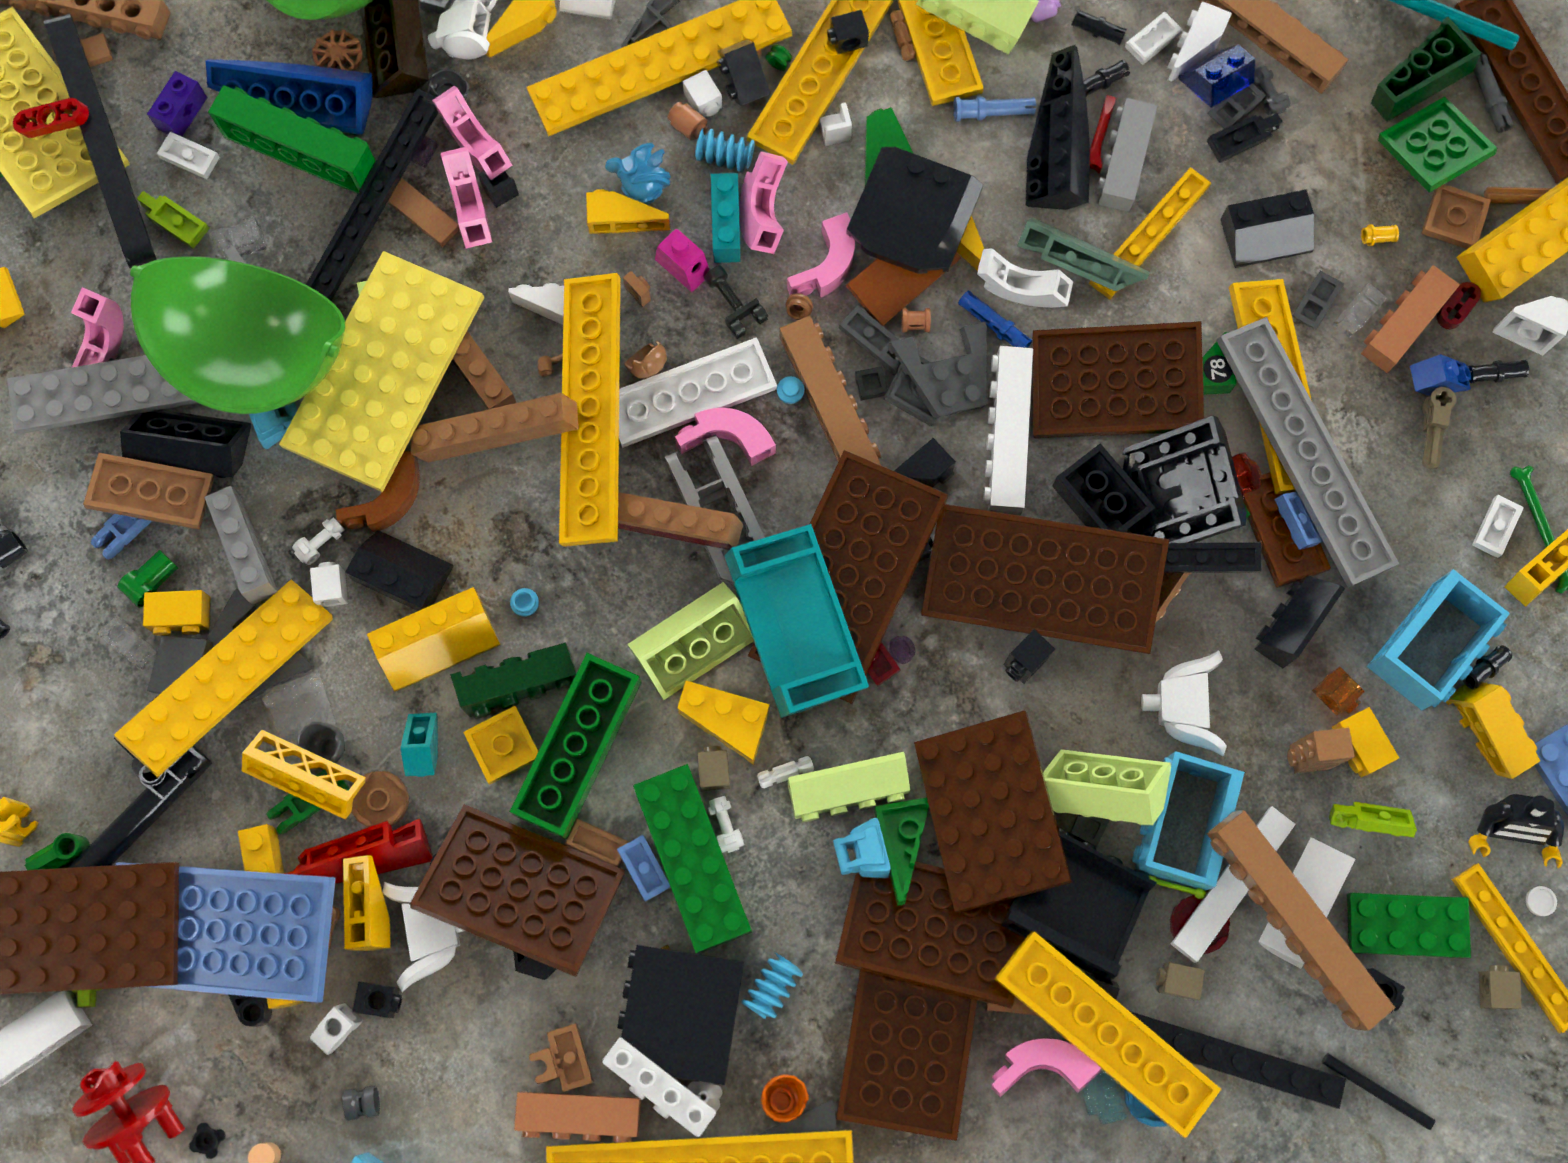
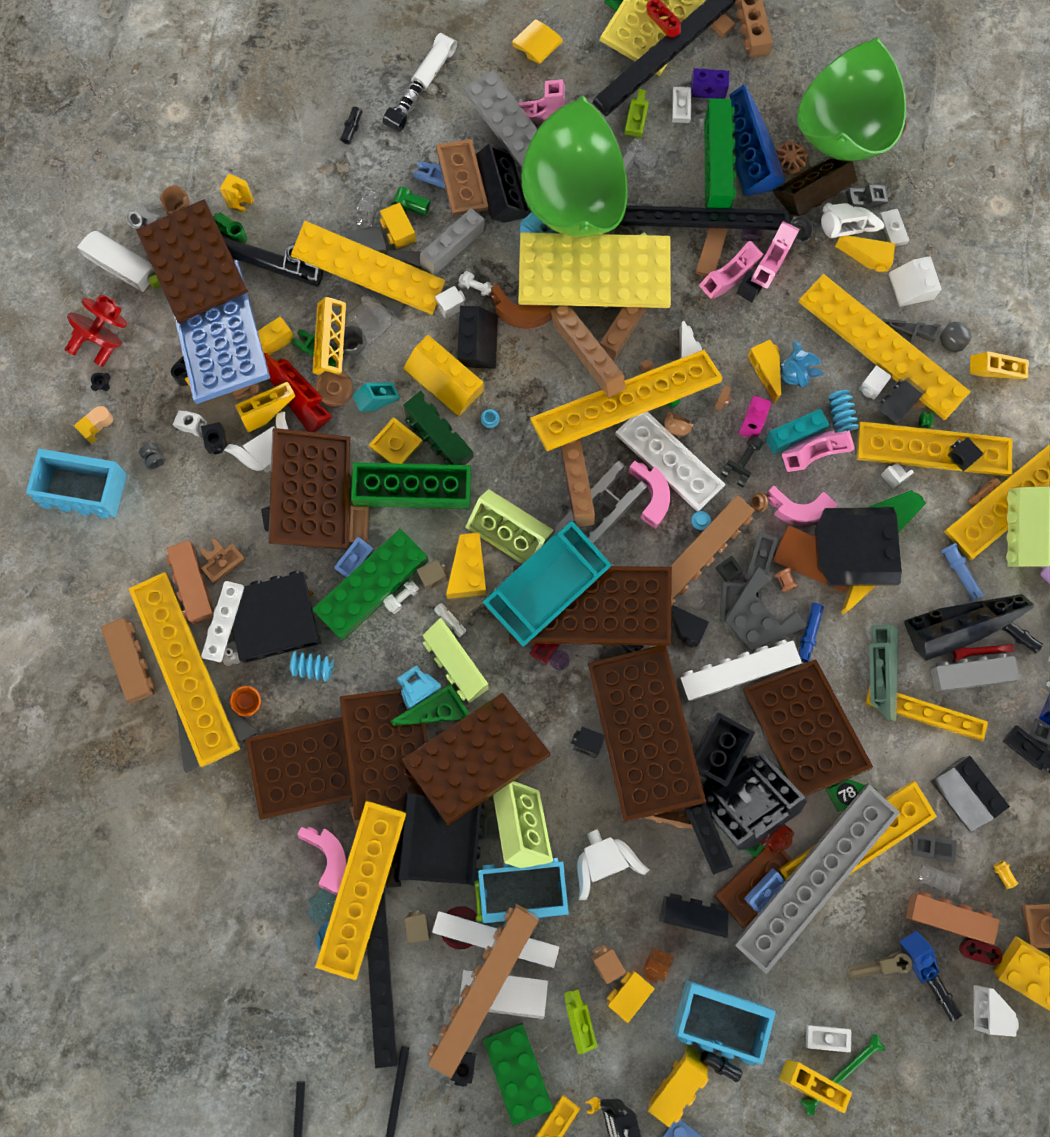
camera: 65 degrees right, 0 degrees up
(687, 120) = (852, 380): nougat brick -> none
(1021, 285) = (844, 638): white arch -> none

